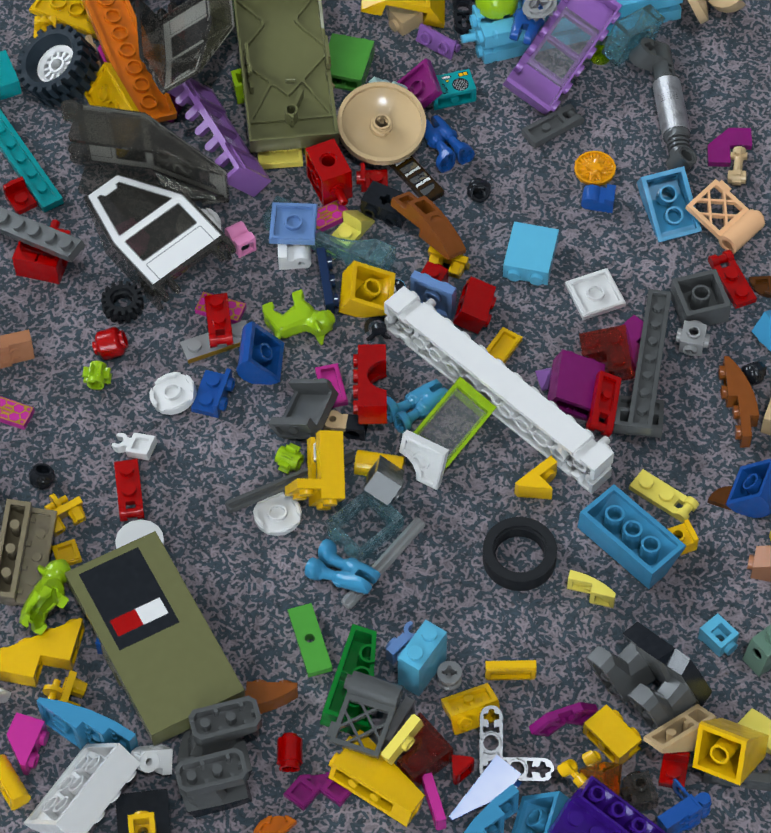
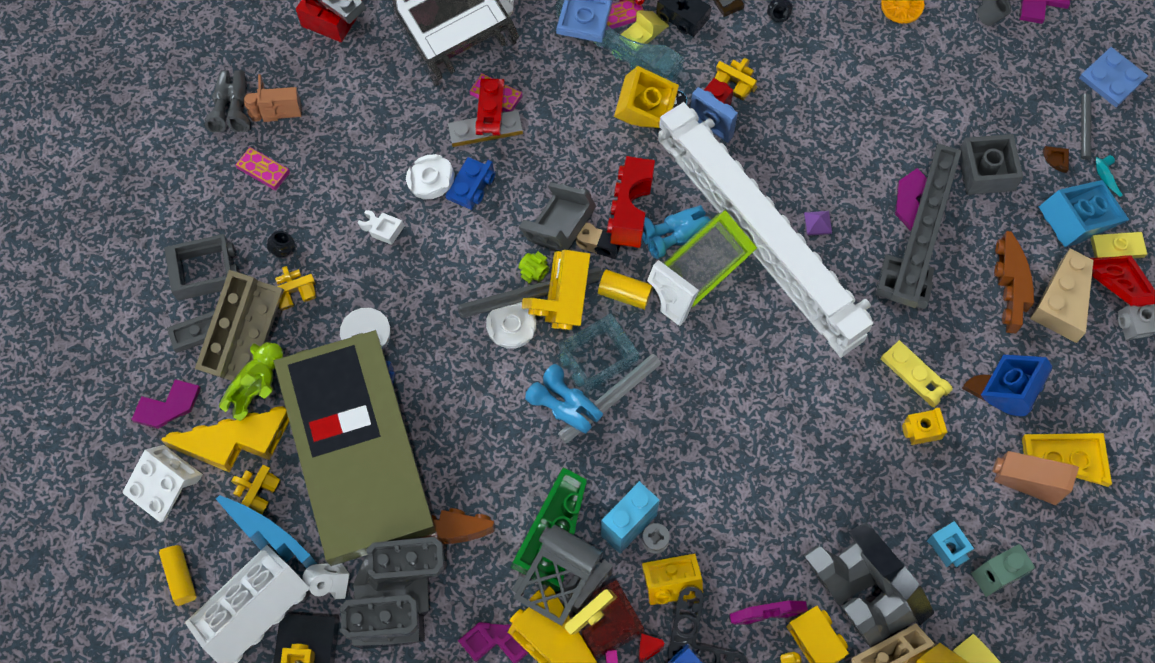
camera: 10 degrees right, 10 degrees up
(25, 739) = (203, 532): dark pink slope -> none
(67, 551) = (289, 331): yellow tile -> none
(96, 375) = (357, 145): lime gear -> none
(110, 343) = (377, 113): red head -> none
(122, 291) = (399, 83): black tyre -> none
(129, 489) = (366, 272): red plate -> none
(240, 237) = (529, 22): bright pink leg -> none
(259, 356) = (524, 151): blue brick -> none
(289, 752) = (472, 595): red brick -> none
(294, 256) = (579, 50): white leg -> none
(298, 319) = (571, 118): lime animal -> none
(305, 628) = (518, 487): bright green tile -> none
(327, 280) = (608, 102): dark blue tile -> none
(333, 374) = (594, 184): dark pink tile -> none
(377, 329) = (649, 142): black piece -> none
(384, 481) = (626, 311): piece -> none
(397, 645) = (609, 495): medium blue plate -> none
(433, 224) = (726, 39): dark orange slope -> none
(474, 305) = (754, 132): red brick -> none
(504, 344) = (776, 180): yellow tile -> none
(510, 670) = (721, 544): yellow tile -> none
(526, 528) = (761, 384): black tyre -> none
(530, 253) = (821, 85): medium azure brick -> none
(536, 481) = (781, 337): yellow slope -> none
(573, 383) = (845, 237): magenta brick -> none
(595, 294) = (880, 139): white tile -> none
(598, 198) = (901, 36): blue leg -> none
(599, 592) = (829, 473): light yellow slope -> none
(604, 403) = (871, 263): red plate -> none
(610, 346) = (891, 201): clear red brick -> none
(630, 536) = (875, 415): dark azure slope -> none
(665, 201) = (974, 55): dark azure slope -> none
(693, 338) = (976, 204): light grey brick -> none
(732, 279) = (1028, 146): red plate -> none
(737, 176) = (1049, 35): tan bar -> none
(738, 229) = (1042, 93): light nougat piece -> none
(754, 372) = (1035, 251): black piece -> none

